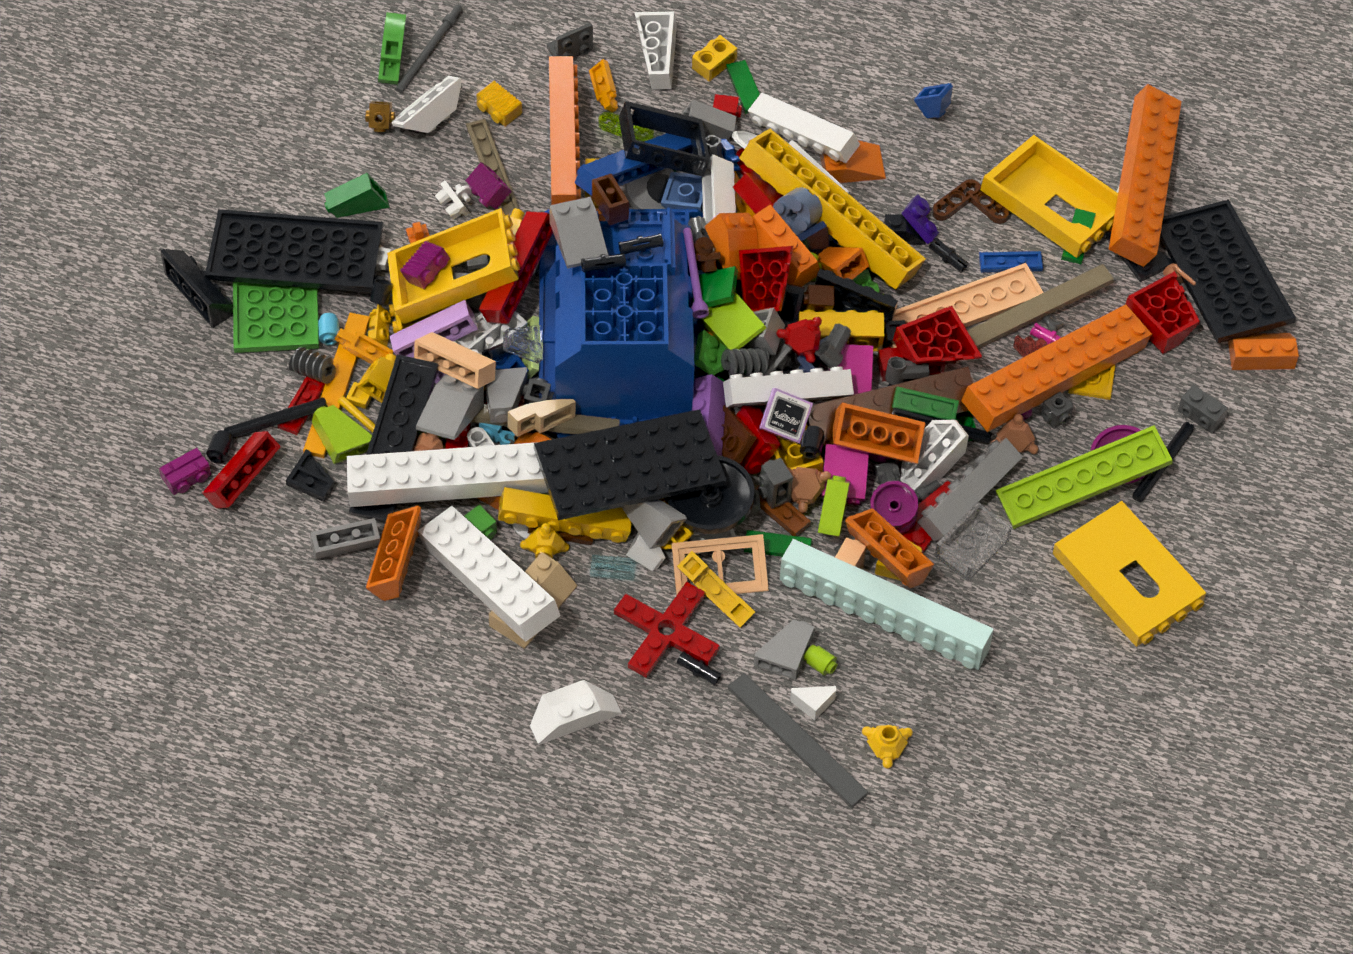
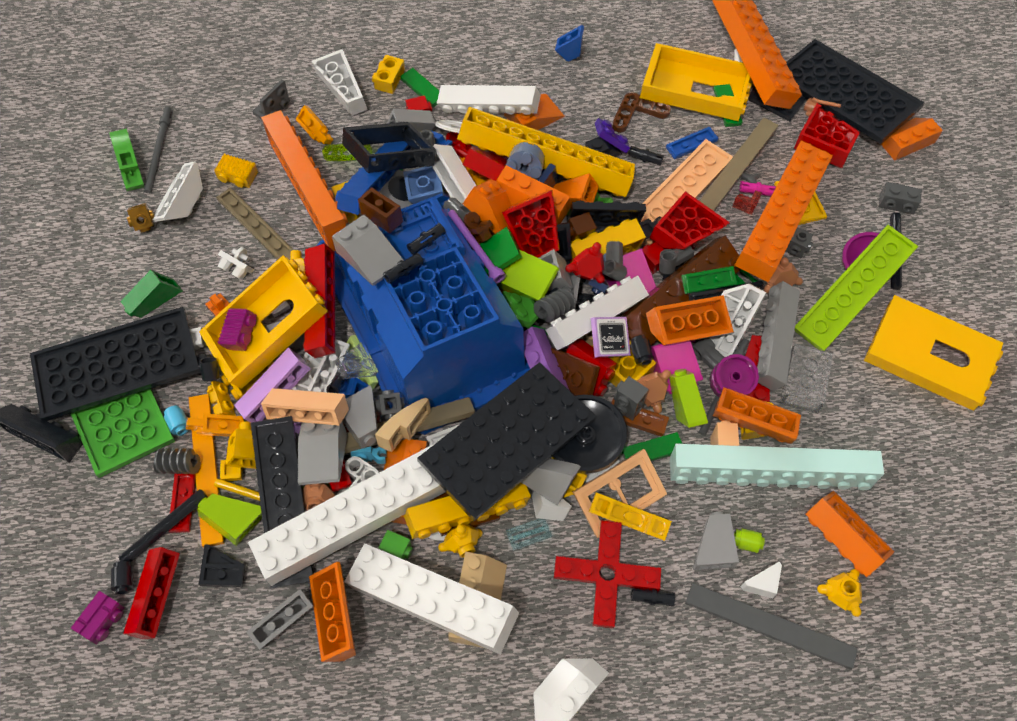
camera: 25 degrees left, 5 degrees up
(488, 186) = (259, 240): magenta brick -> none
(925, 695) = (849, 533): none -> orange slope

